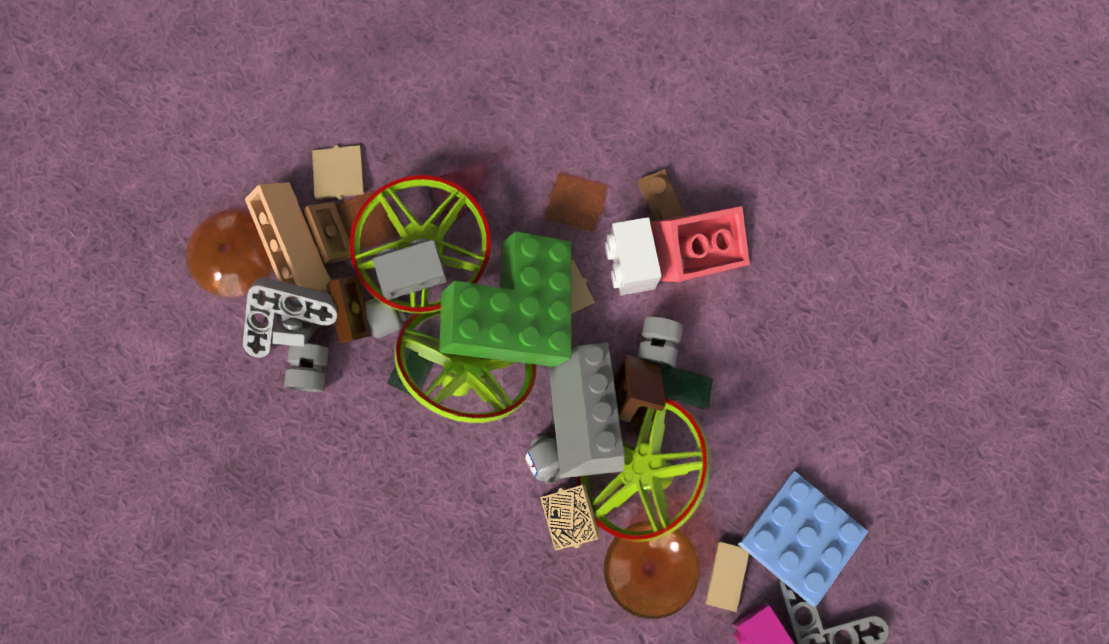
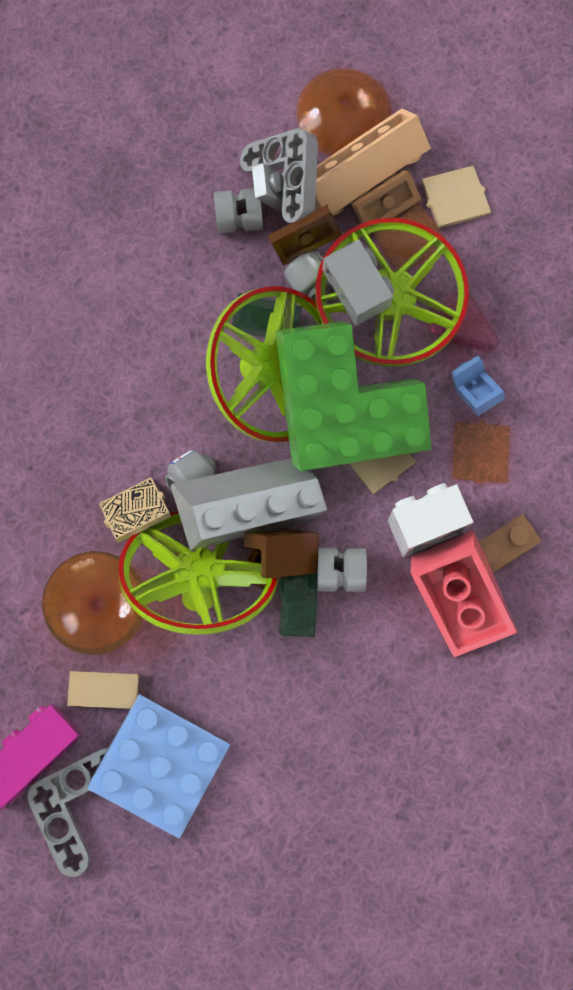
camera: 80 degrees right, 0 degrees up
(519, 192) = (476, 386): none -> medium blue bracket

